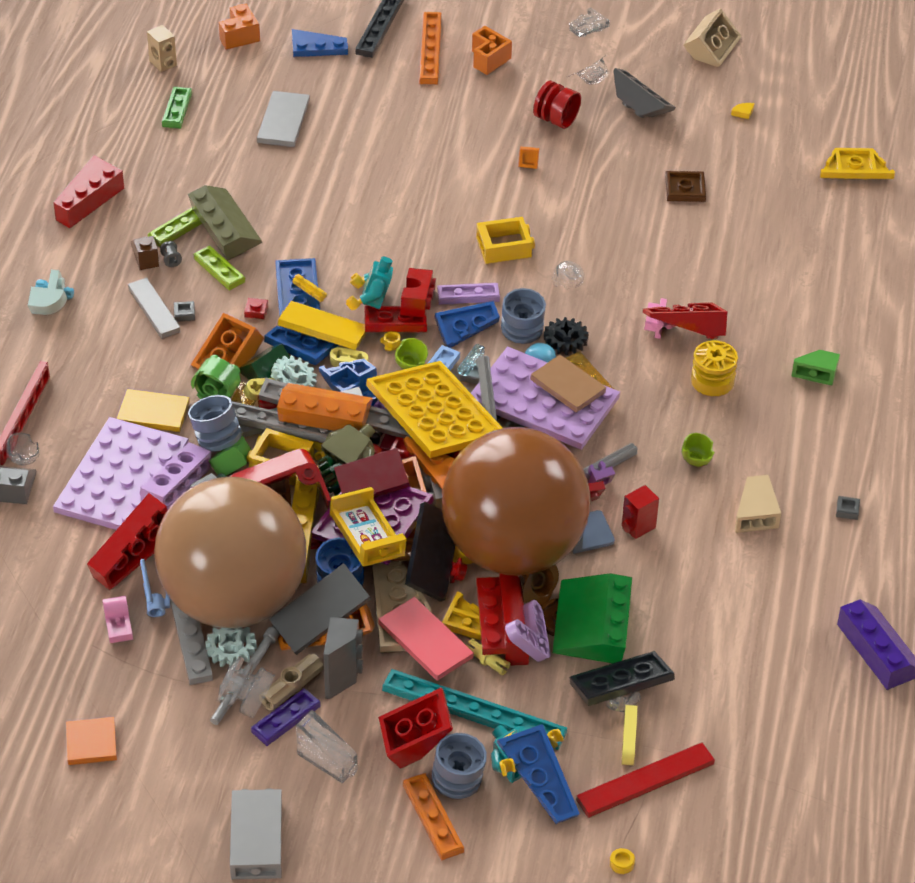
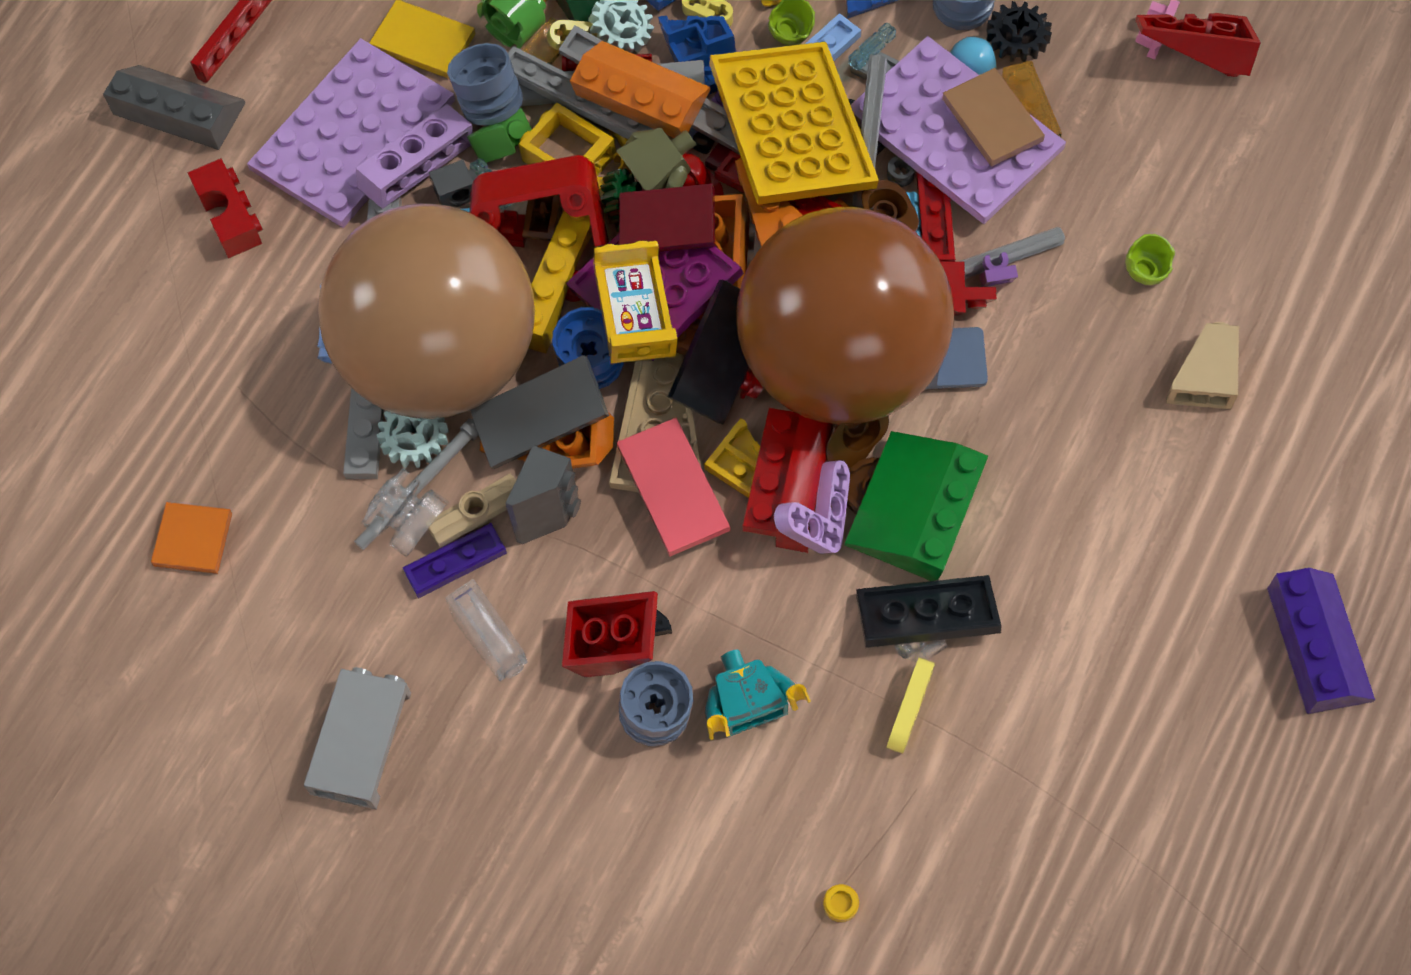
camera: 20 degrees right, 20 degrees up
(21, 449) = (230, 67): clear hair -> none
(38, 523) = (234, 226): none -> red arch
(117, 619) = (278, 359): bright pink plate -> none
(128, 544) = (302, 261): red wedge -> none
(433, 816) = (604, 766): orange tile -> none
(466, 705) = (709, 606): teal tile -> none
(493, 661) = (762, 543): light yellow pin -> none
(541, 771) = (763, 735): blue wing -> none
(640, 512) = (1033, 348): red brick -> none
(645, 779) = (913, 780): red tile -> none
(714, 368) = (1214, 129): yellow wheel -> none
(817, 366) = (1369, 155): bright green slope -> none
(848, 507) = (1342, 399): dark grey tile -> none

